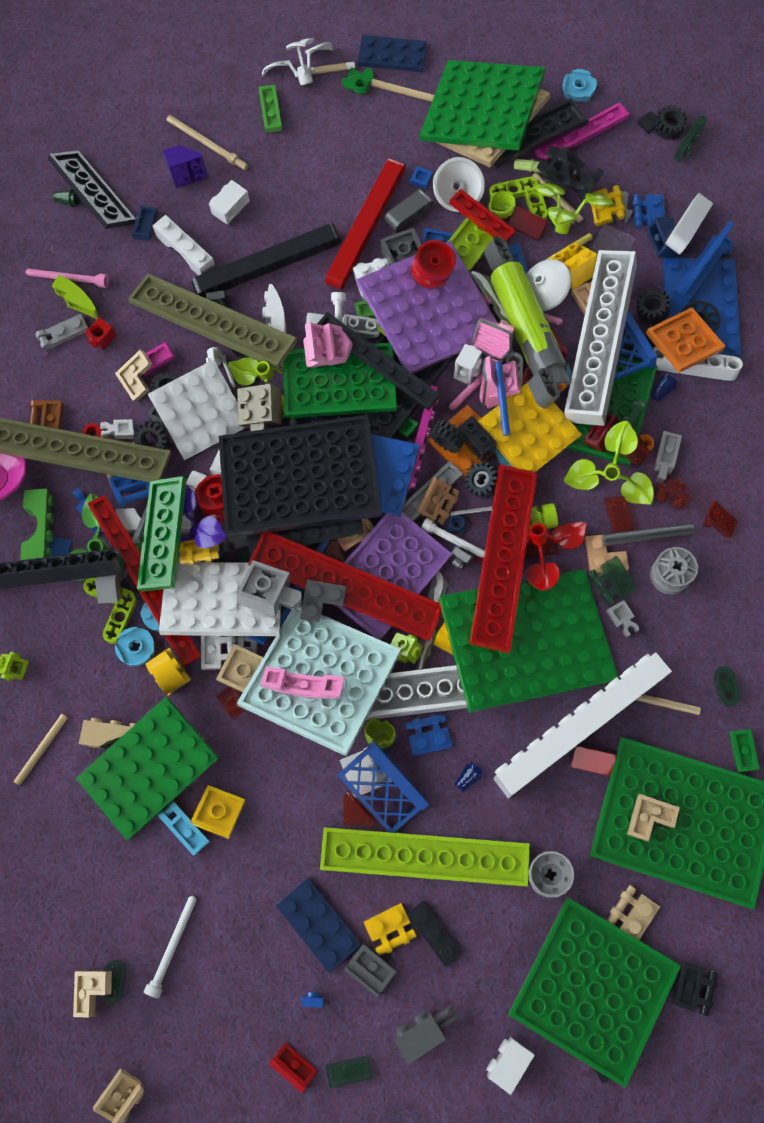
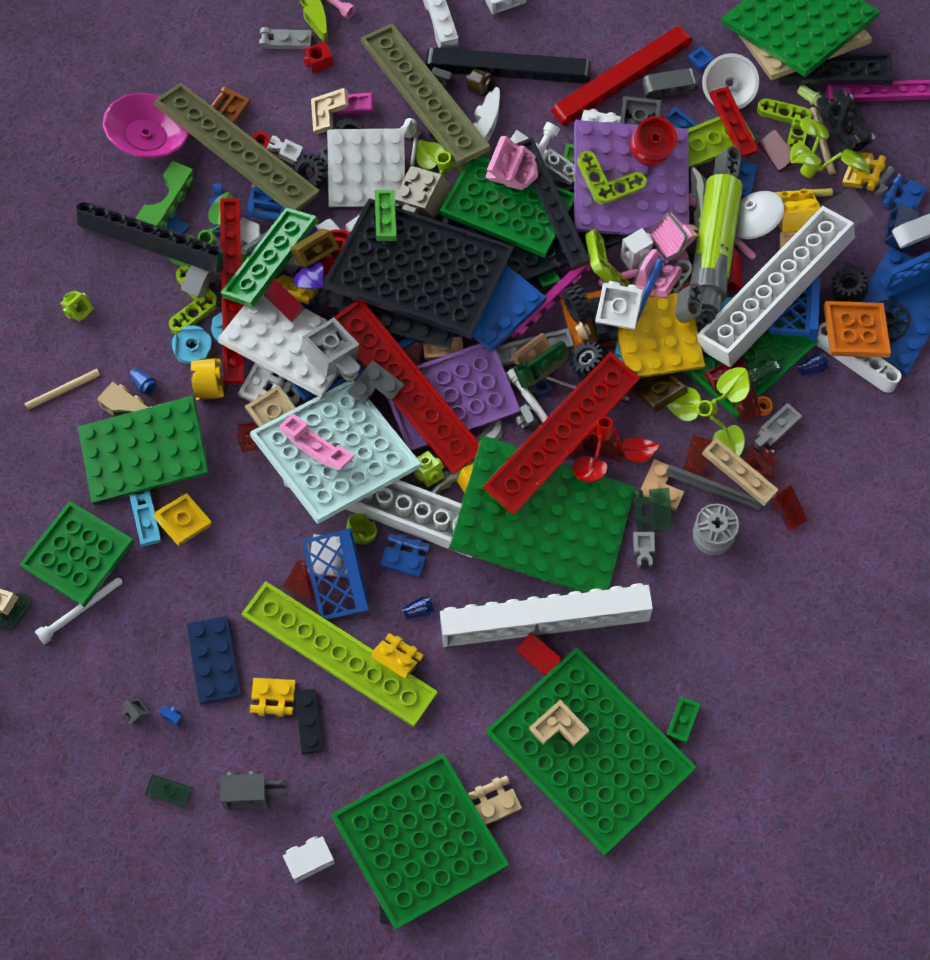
camera: 25 degrees right, 5 degrees down
(112, 703) = (144, 382): none -> blue cone
(141, 897) = (76, 553): none -> green plate
(198, 505) = (314, 247): none -> pearl gold brick
(198, 567) = (284, 301): none -> dark red slope
(243, 444) = (385, 215): none -> bright green plate
(251, 287) = (480, 82): none -> dark brown head
(277, 1013) = (136, 709): none -> dark grey tile
(293, 1067) = (123, 762): red slope -> none
(370, 970) = (235, 719): dark grey plate -> none
(412, 323) = (603, 185): none -> lime beam
(445, 516) = (532, 372): none -> dark green plate
(447, 392) = (599, 259): none -> lime beam
(465, 457) = (583, 331): none -> tan plate
(476, 836) = (394, 659): none -> yellow plate
(489, 420) = (619, 305): none -> white plate
(502, 204) = (761, 121): lime hair -> none
(545, 515) = (624, 420): lime wheel -> none
(556, 863) = (432, 715): light grey wheel -> none
(557, 475) = (660, 391): none -> dark brown plate
(564, 390) = (706, 315): none -> black plate
(579, 94) = (909, 54): medium azure plate -> none
(663, 510) = (740, 471): none -> tan plate
(669, 704) = (639, 644): tan bar -> none
(689, 986) = (505, 886): black plate -> none
(728, 686) = (702, 657): clear green plate -> none

